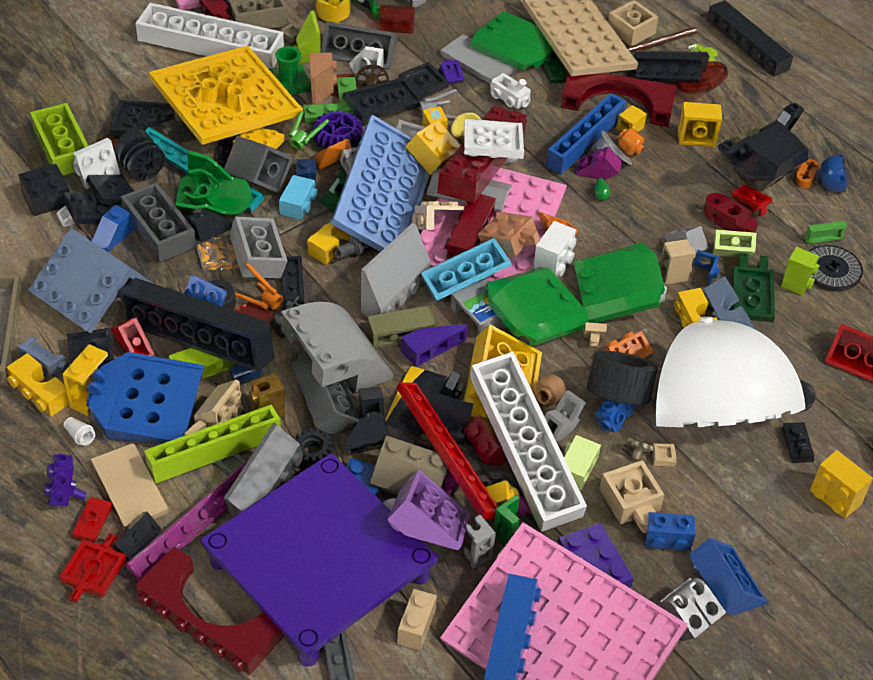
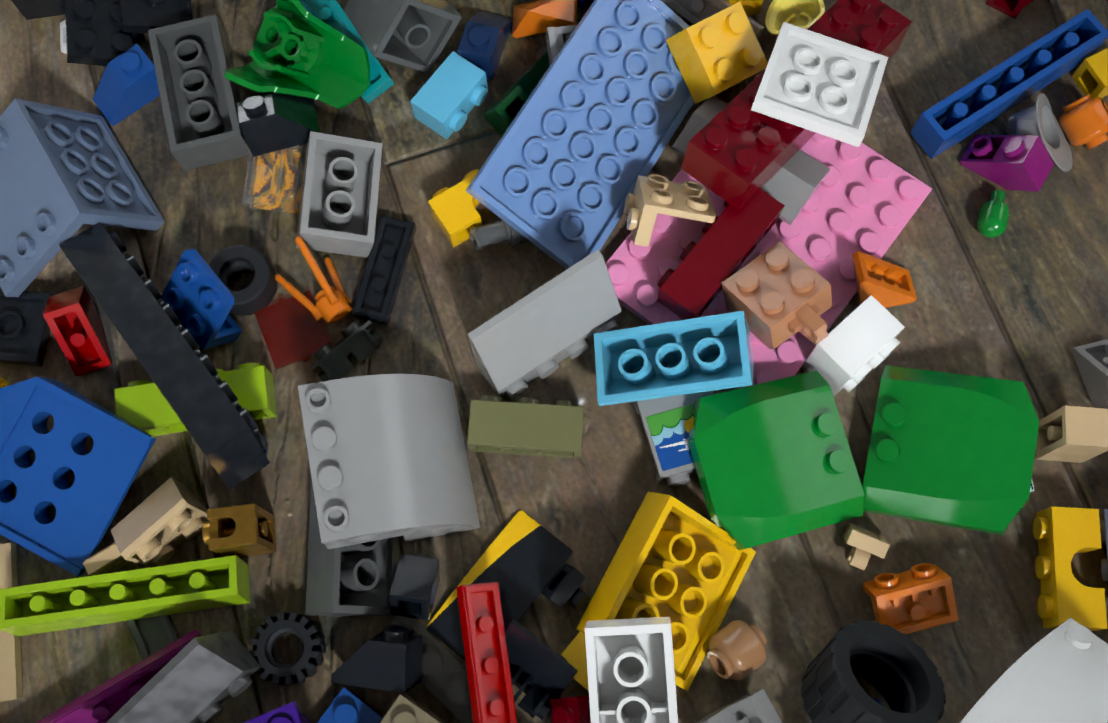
camera: 25 degrees right, 25 degrees up
(431, 342) = (561, 479): dark purple slope -> none

